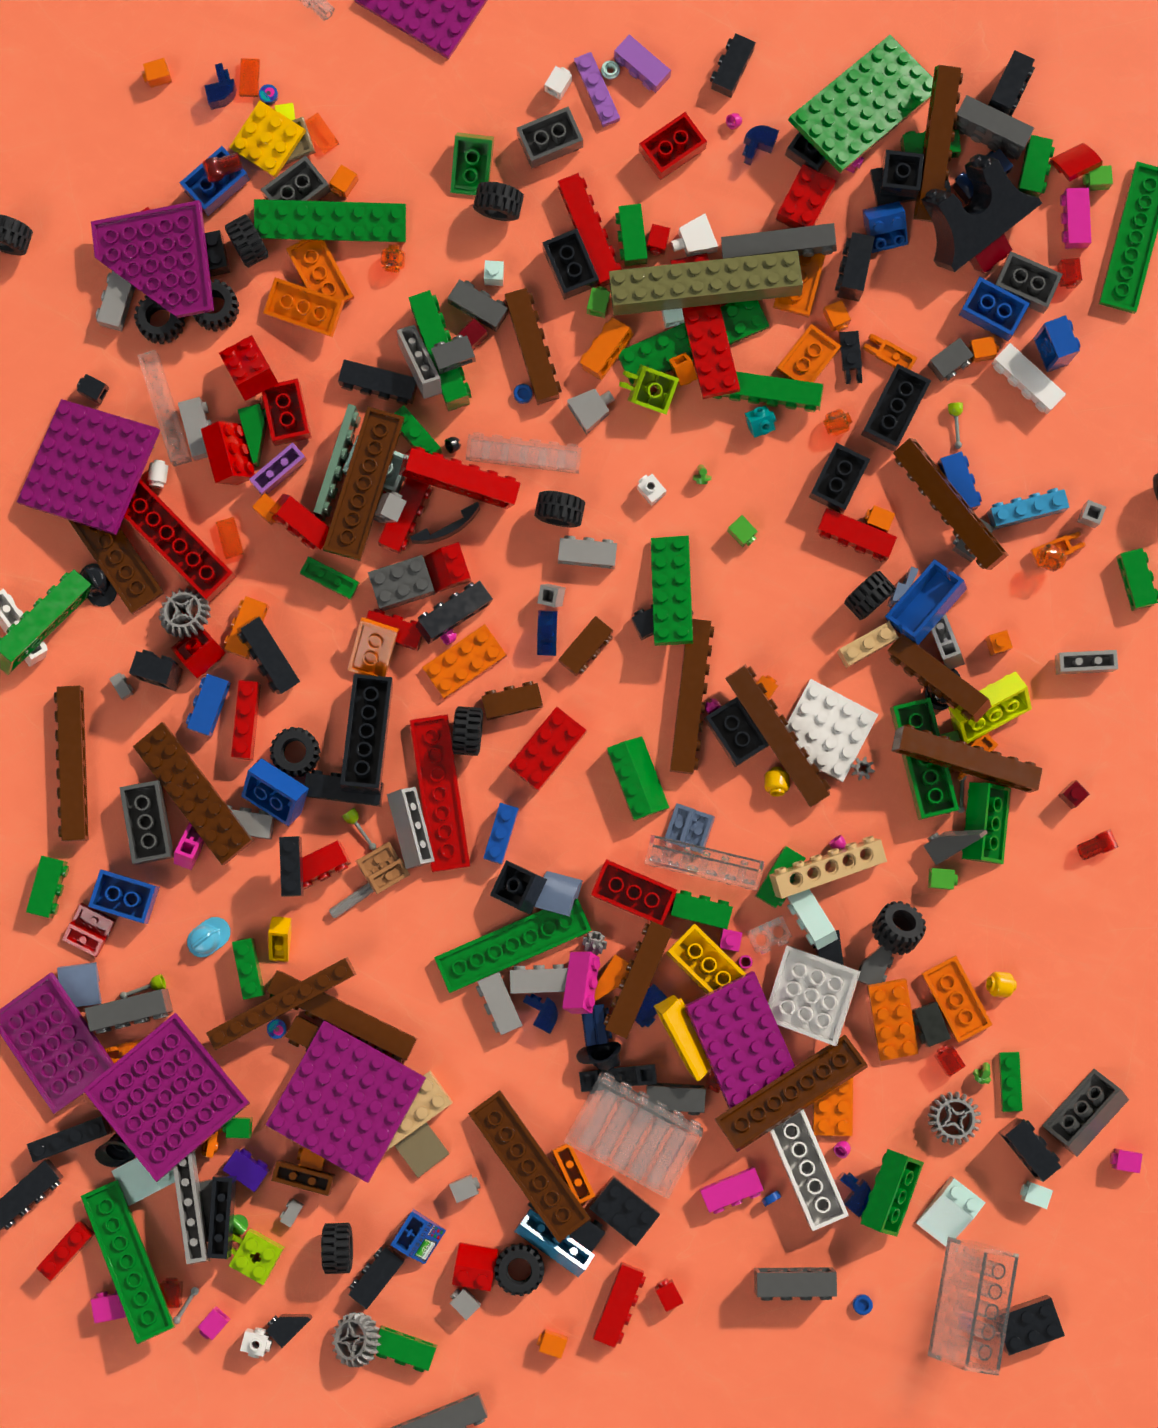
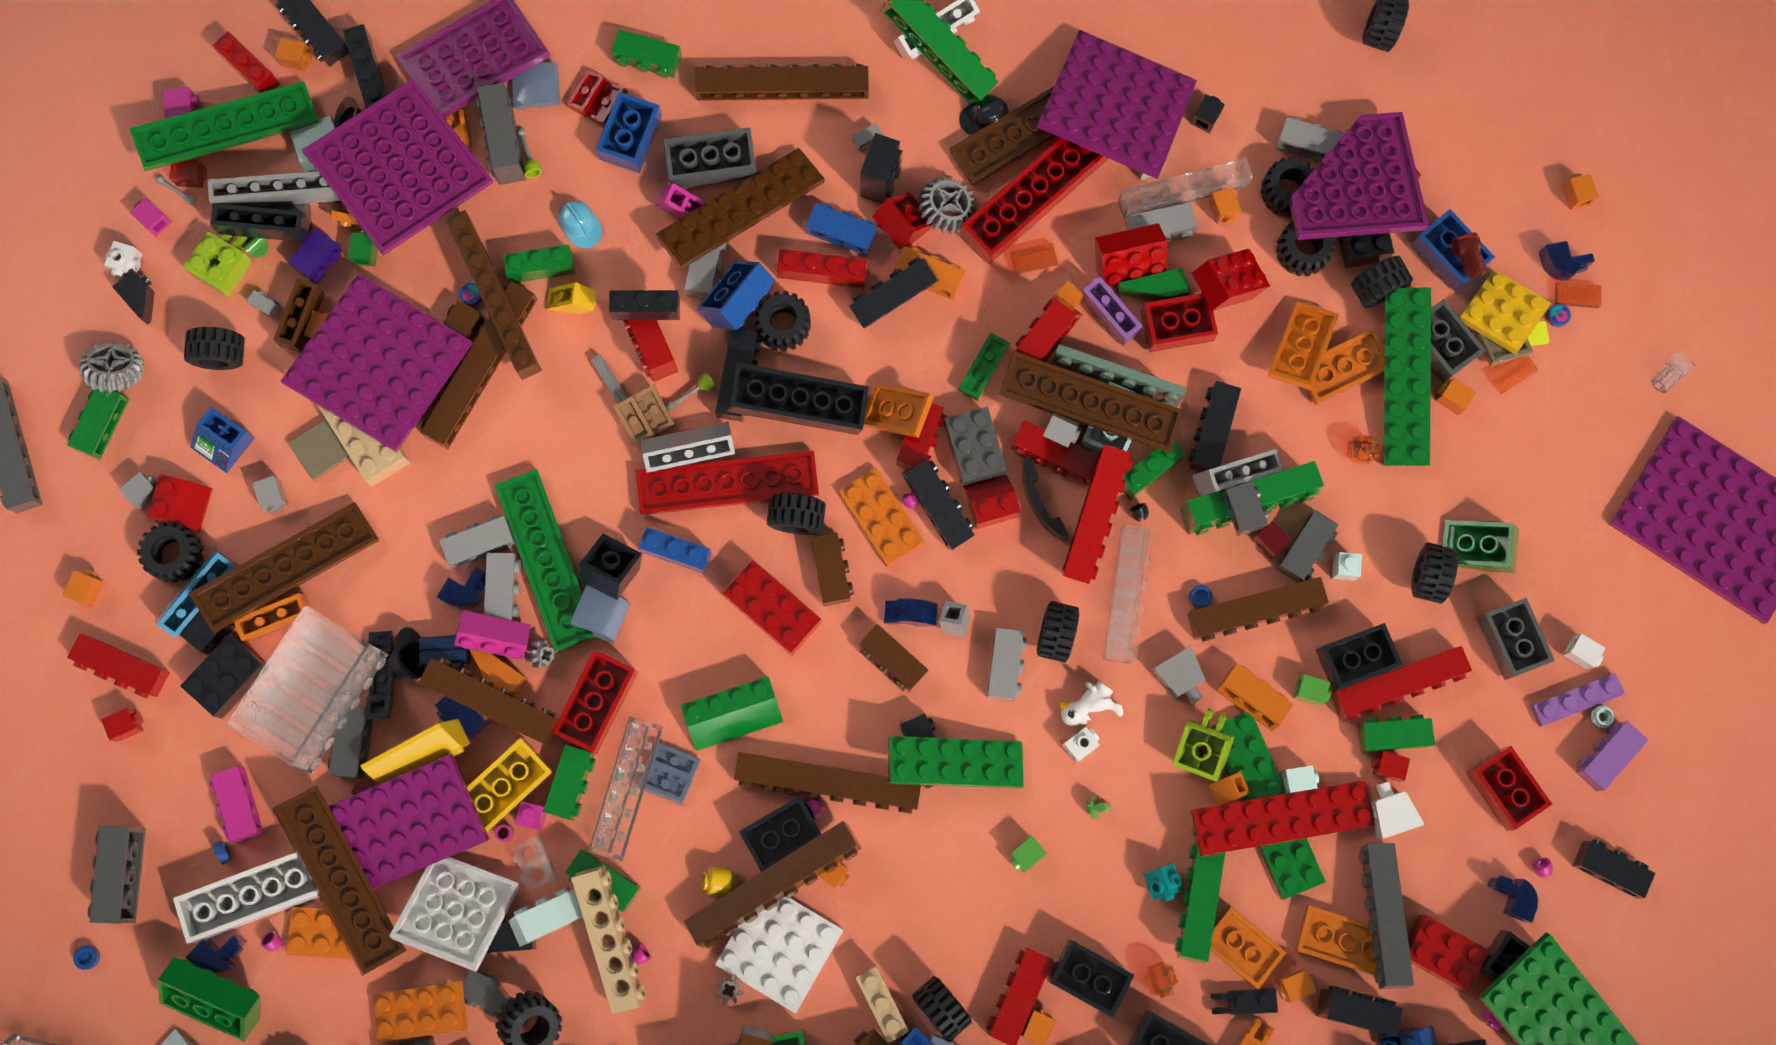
camera: 90 degrees right, 5 degrees down
(54, 1208) = (293, 54): none -> orange brick
(157, 474) = (1108, 180): white brick -> none
(178, 374) = (1225, 206): none -> orange brick
(375, 1276) = (180, 391): black brick -> none
(614, 479) = (1093, 700): none -> white animal
(705, 283) = (1336, 821): olive brick -> none

